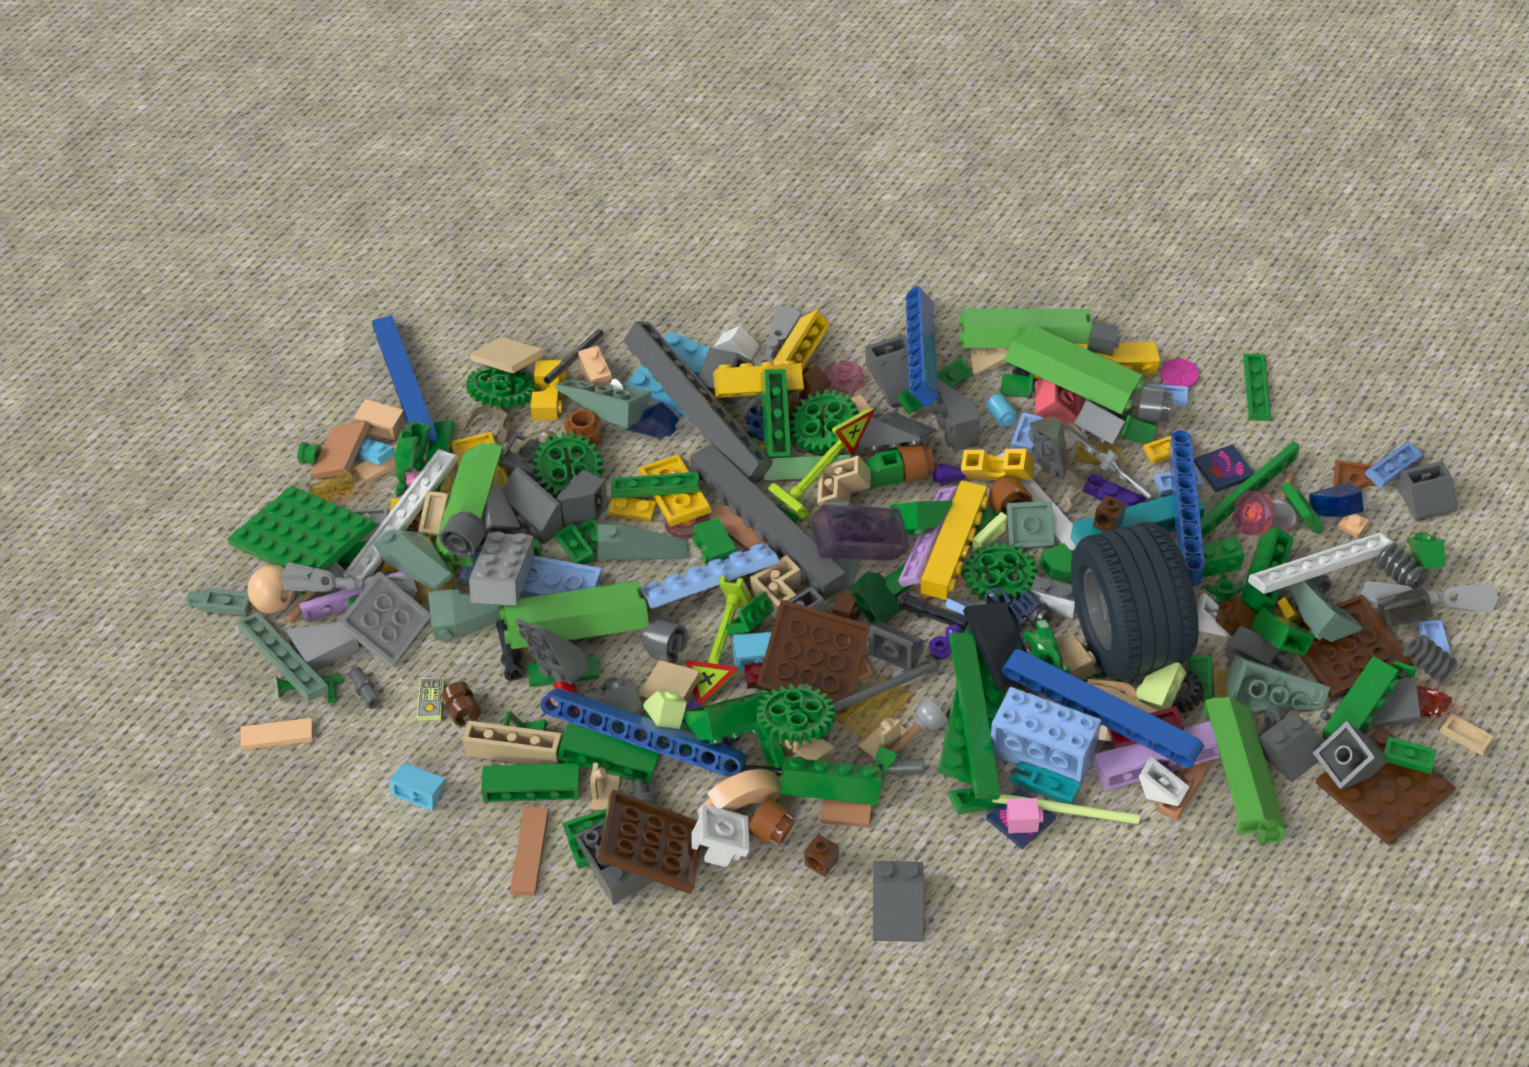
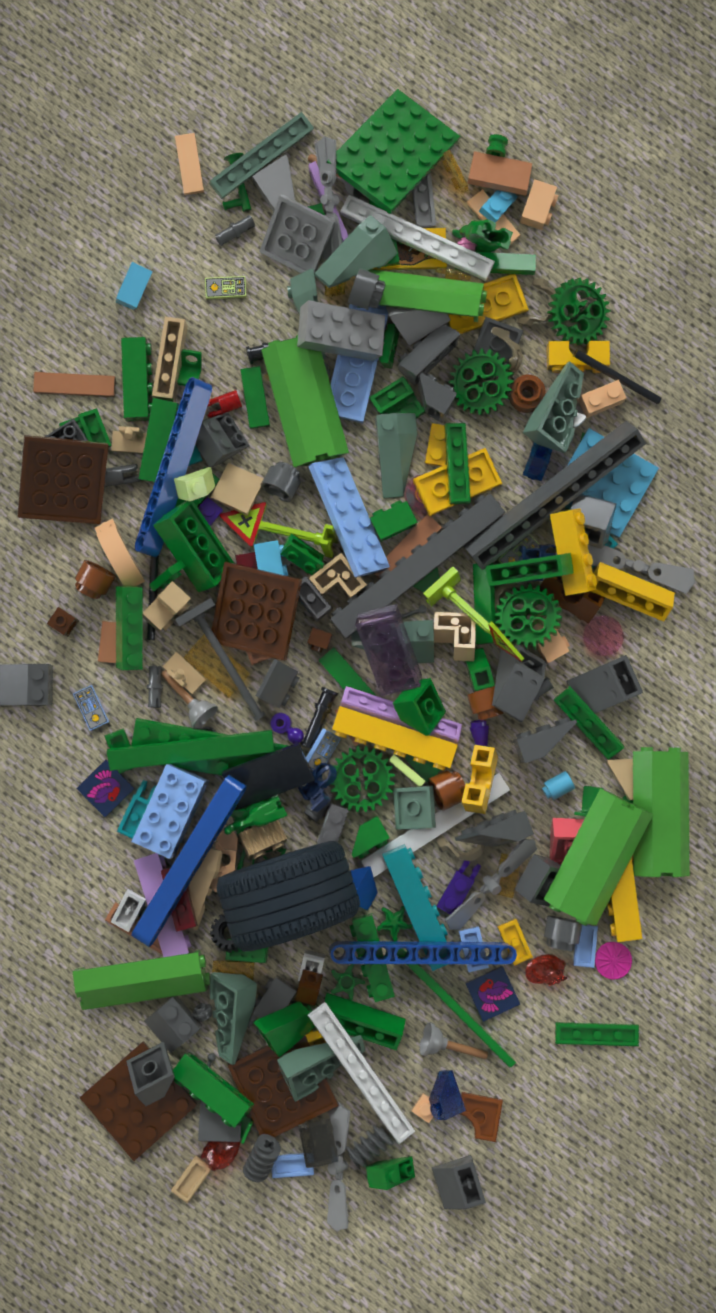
camera: 85 degrees right, 35 degrees up
(220, 601) = (326, 95): sand green hinge -> none
(267, 590) = (334, 127): light nougat piece -> none
(402, 374) = (588, 219): blue beam -> none
(433, 512) = (420, 265): tan tile -> none
(460, 702) = (214, 313): reddish brown wheel -> none
(506, 354) = (618, 313): tan tile -> none
(553, 653) = (249, 384): dark grey slope -> none
(723, 833) = (75, 538): white panel -> none
(738, 341) = (643, 532): white slope -> none
(795, 714) = (185, 606): green gear -> none
(875, 598) = (321, 664): dark green brick -> none
(884, 758) = (155, 672): green piece -> none
(921, 346) = (624, 708): blue beam -> none
(925, 833) = (91, 707): none -> tile
(1021, 437) = (534, 809): light blue plate -> none
(1023, 815) = (97, 790): bright pink brick -> none
(1078, 810) = (110, 828): yellowish green piece -> none
(1103, 338) = (633, 887): dark grey brick -> none
(1109, 514) = (406, 880): reddish brown brick -> none
(1138, 430) = (534, 916): green bracket -> none
(1161, 686) = (213, 912): yellowish green slope -> none
(1194, 420) = (546, 970): none -> clear red hat
(1253, 512) = (428, 1015): clear pink tile -> none
(1303, 508) = (433, 1061): green slope -> none
(1392, 465) = (495, 1156): medium blue tile -> none
(1410, 755) = (156, 1125): green plate -> none

